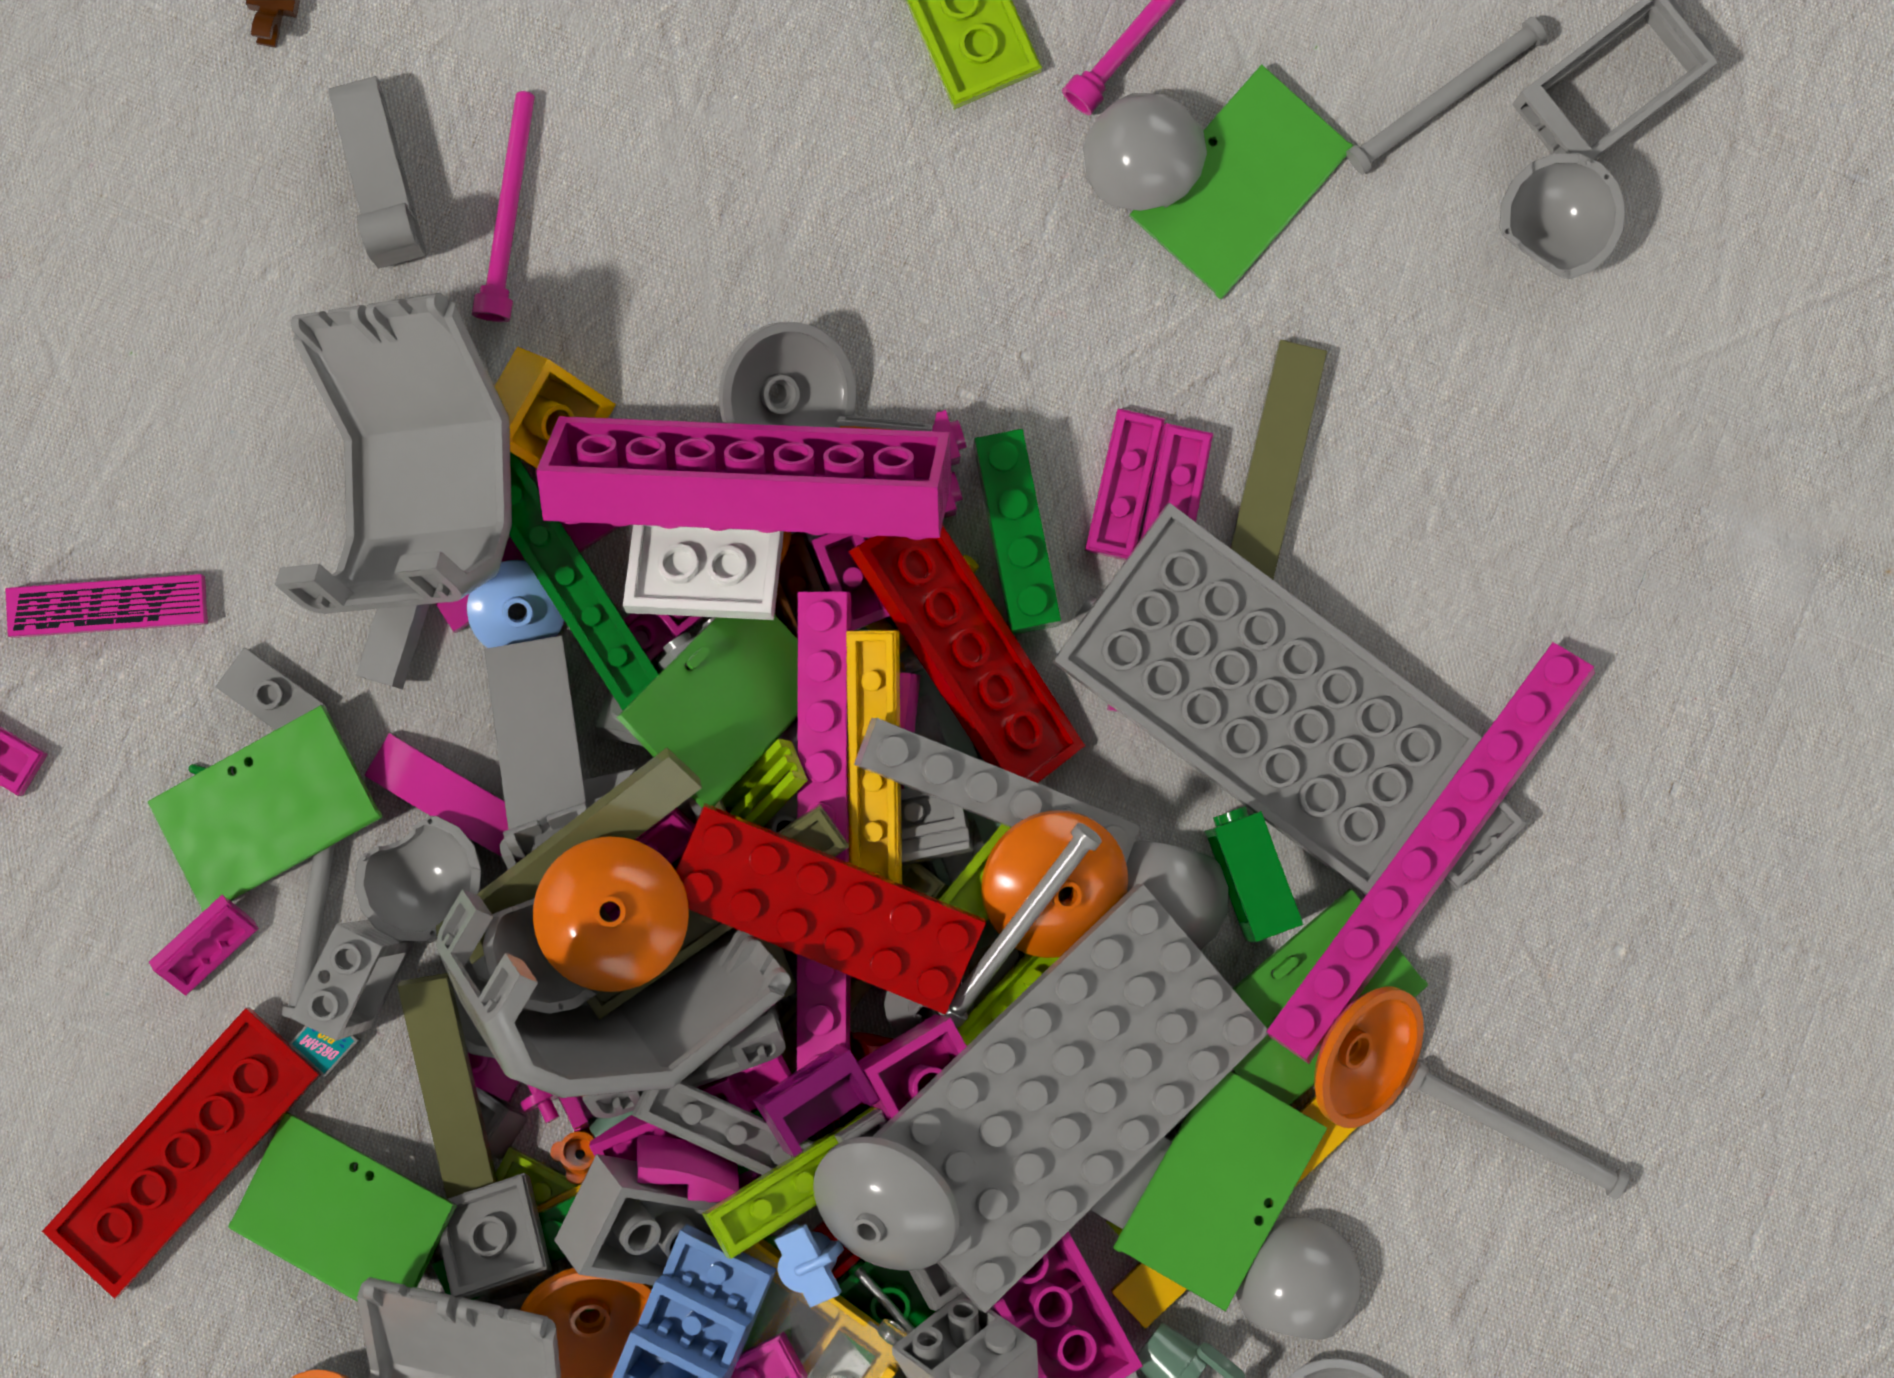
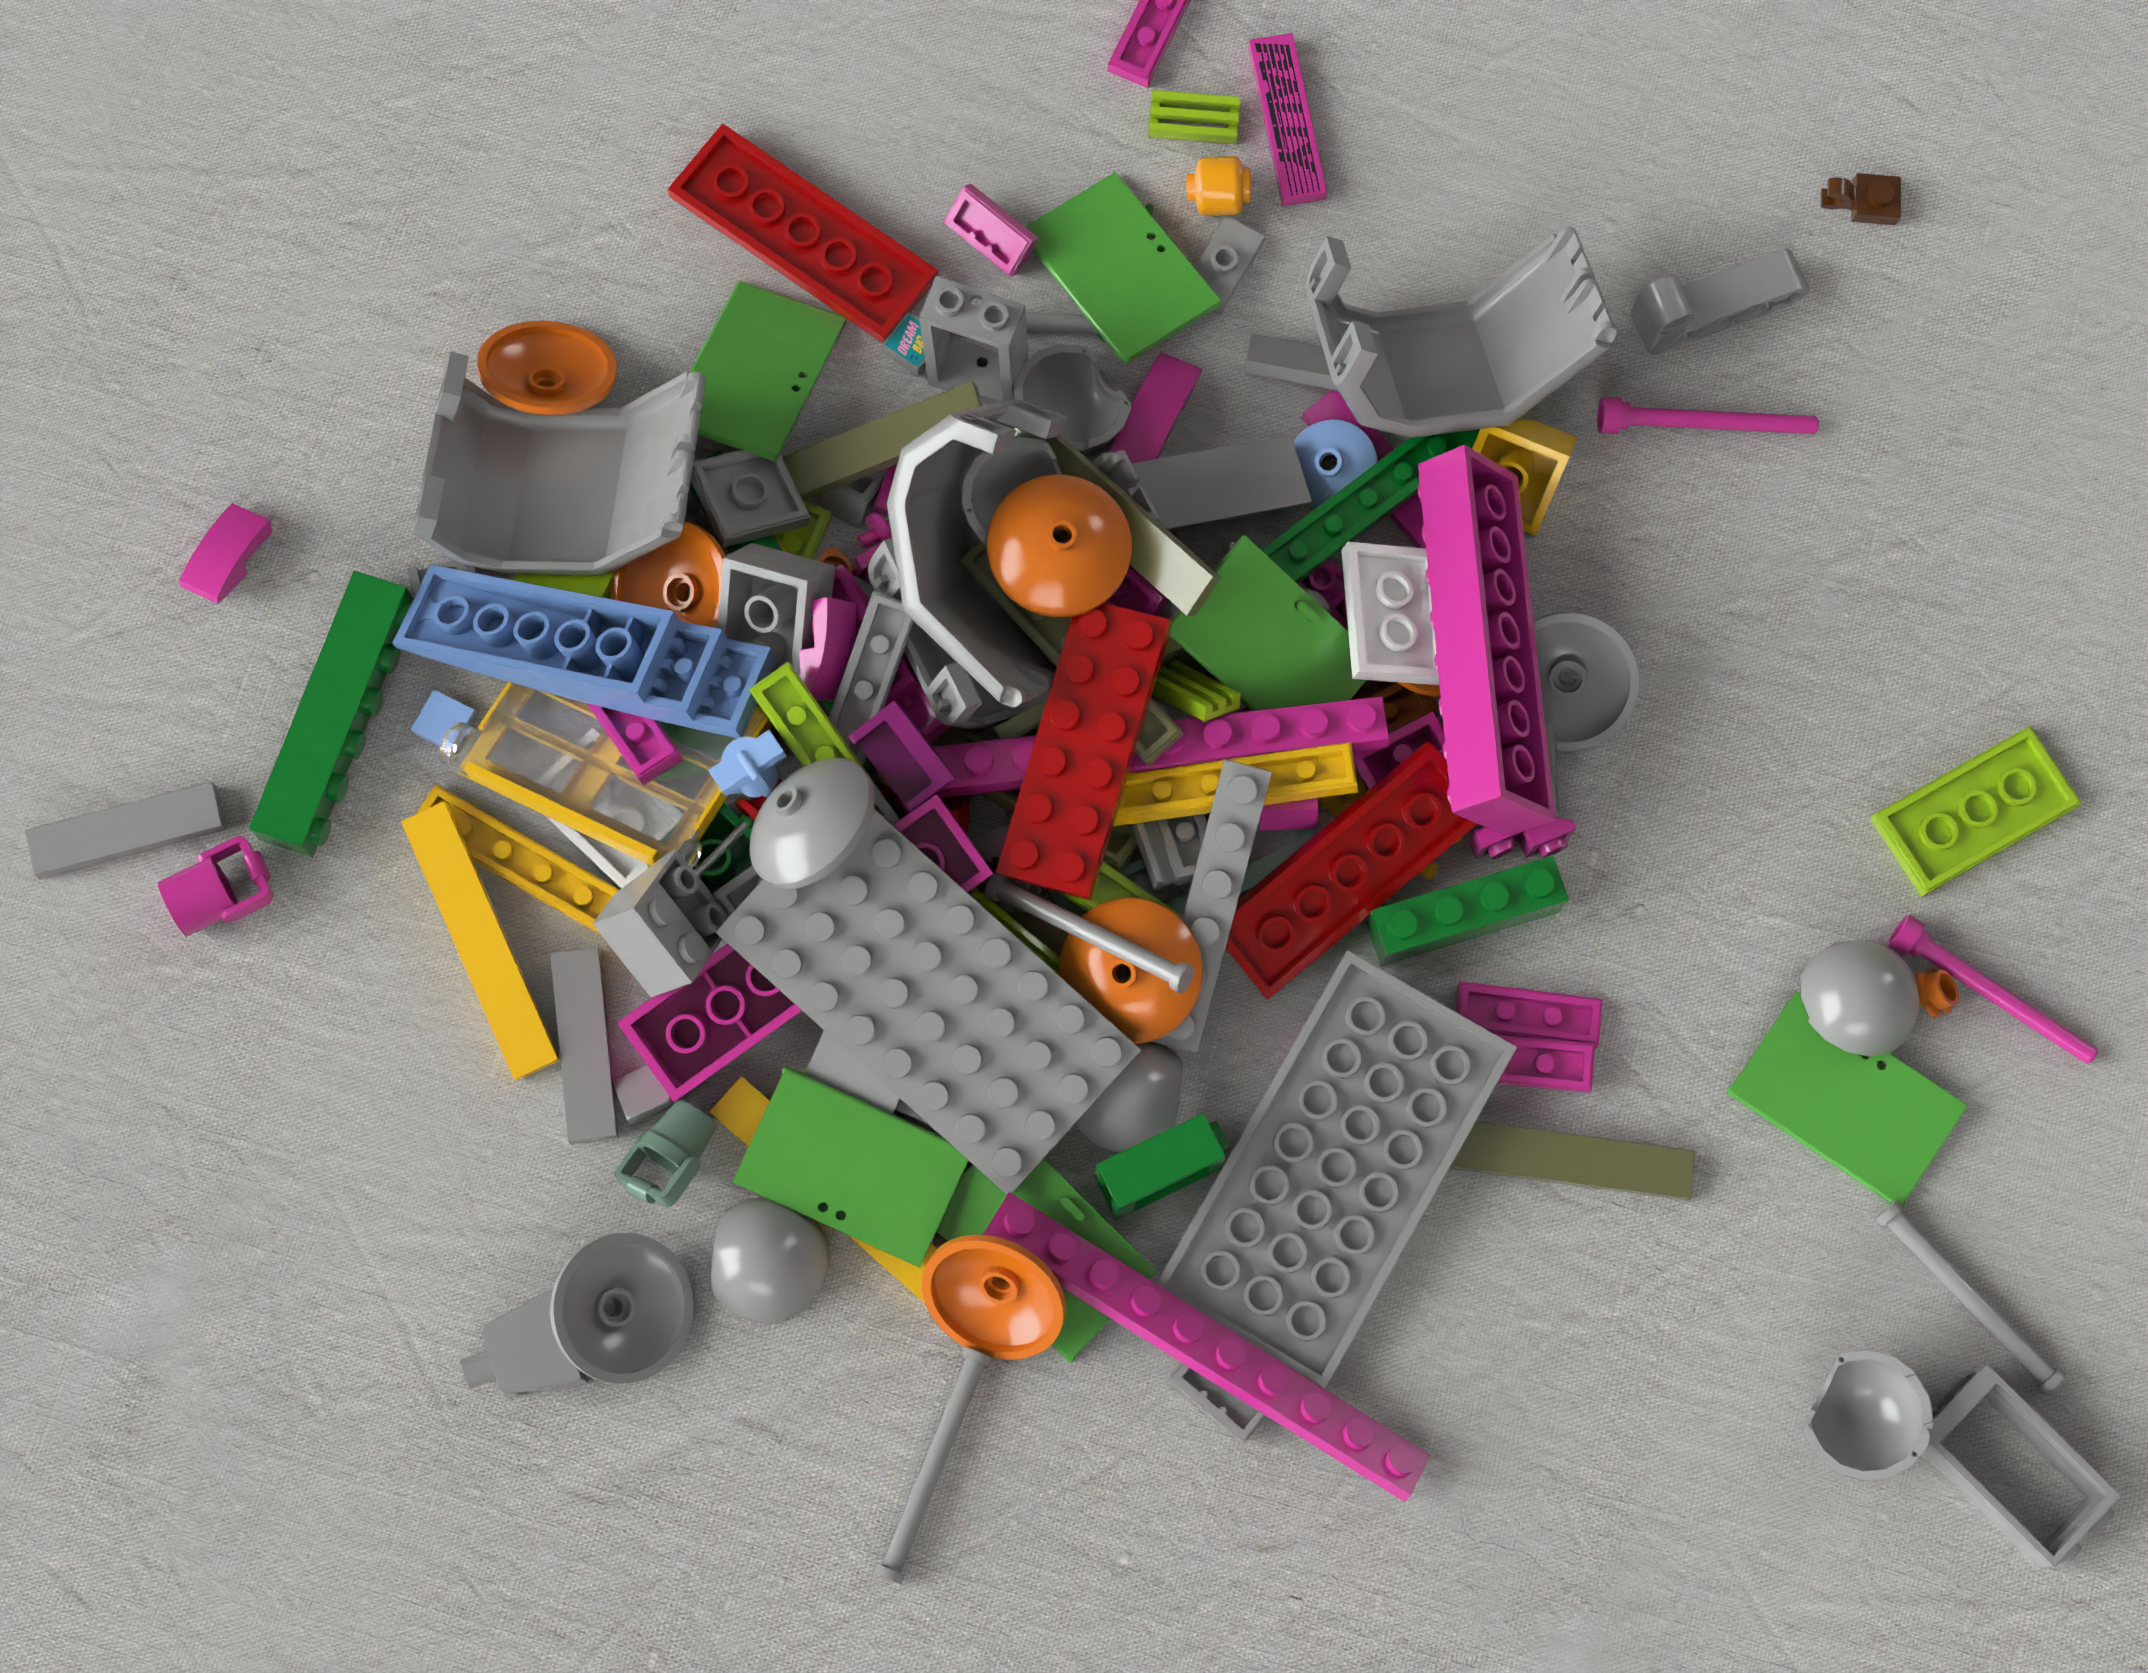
camera: 90 degrees right, 10 degrees down
(73, 705) = (1194, 109): none -> lime tile
(182, 690) = (1219, 186): none -> light orange head
(1144, 74) = (1937, 991): none -> orange plate

